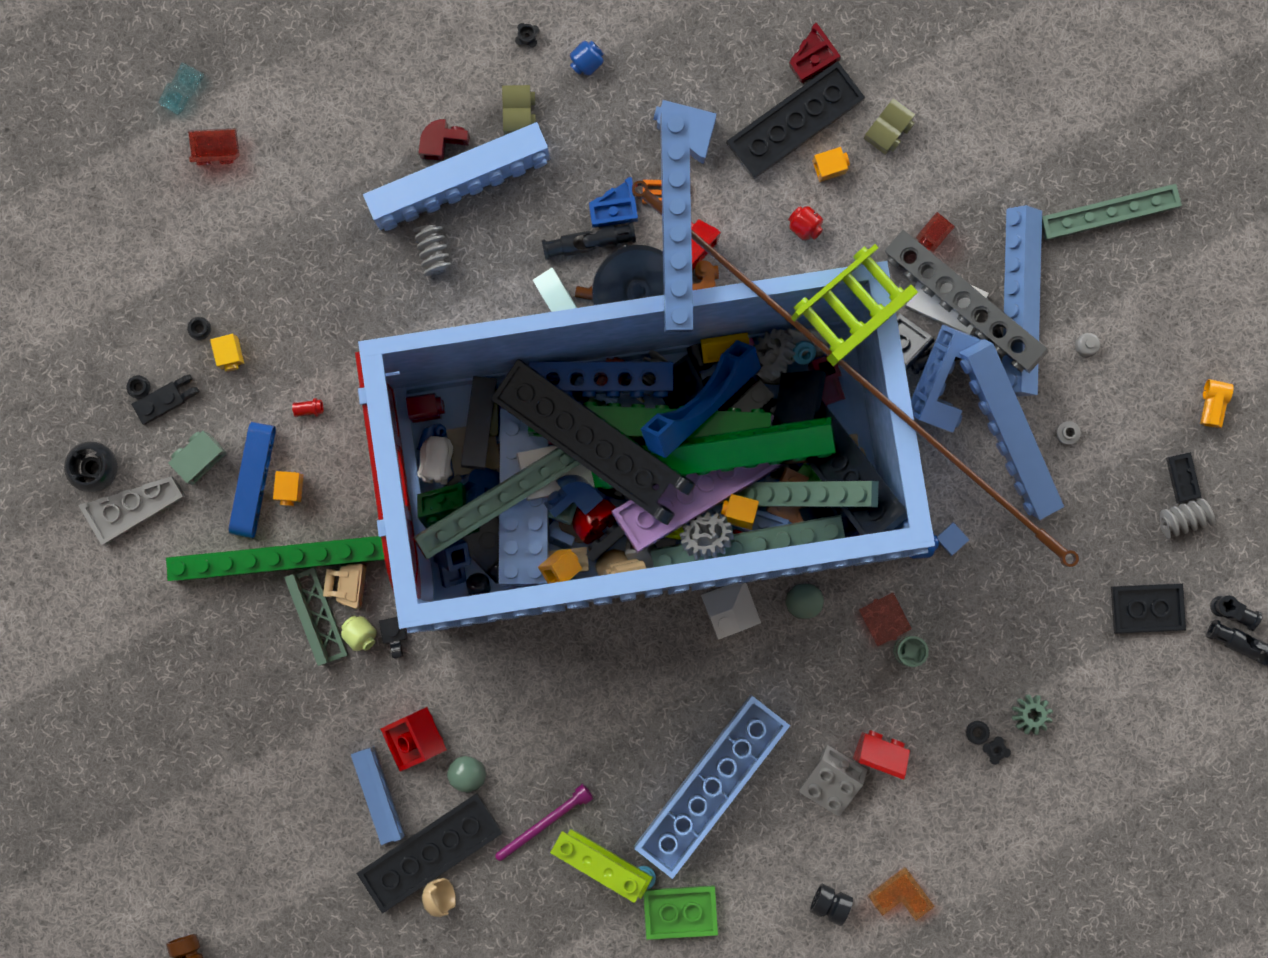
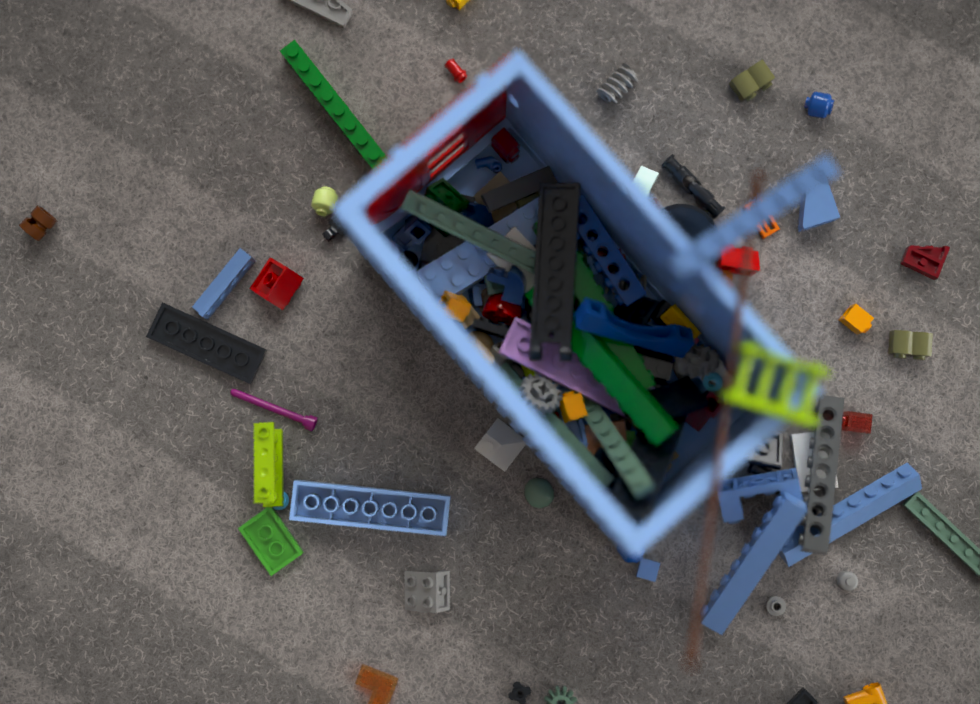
camera: 60 degrees right, 0 degrees up
(197, 457) = (375, 18): sand green brick -> none
(252, 480) = (383, 64): blue beam -> none
(288, 487) = (393, 91): light orange brick -> none
(308, 621) = (313, 160): sand green fence -> none
(350, 585) = (352, 175): tan piece -> none
(435, 137) = (697, 38): dark red brick -> none
(435, 460) = (474, 176): white piece -> none
(438, 897) = (179, 368): tan hair -> none
(457, 177) = (679, 68): light blue brick -> none
(466, 774) = (275, 334): sand green hair -> none
(527, 29) = (812, 51): black plate -> none
(614, 207) = (728, 189): blue wing -> none
(795, 120) = (871, 275): black plate -> none
(806, 223) = (803, 328): red head -> none
(831, 904) = (340, 638): black wheel -> none
(882, 755) = (465, 614): red slope -> none
(885, 619) = (562, 557): clear red piece -> none
(910, 651) = (550, 588): sand green wheel -> none
(985, 732) = (523, 678): black plate -> none

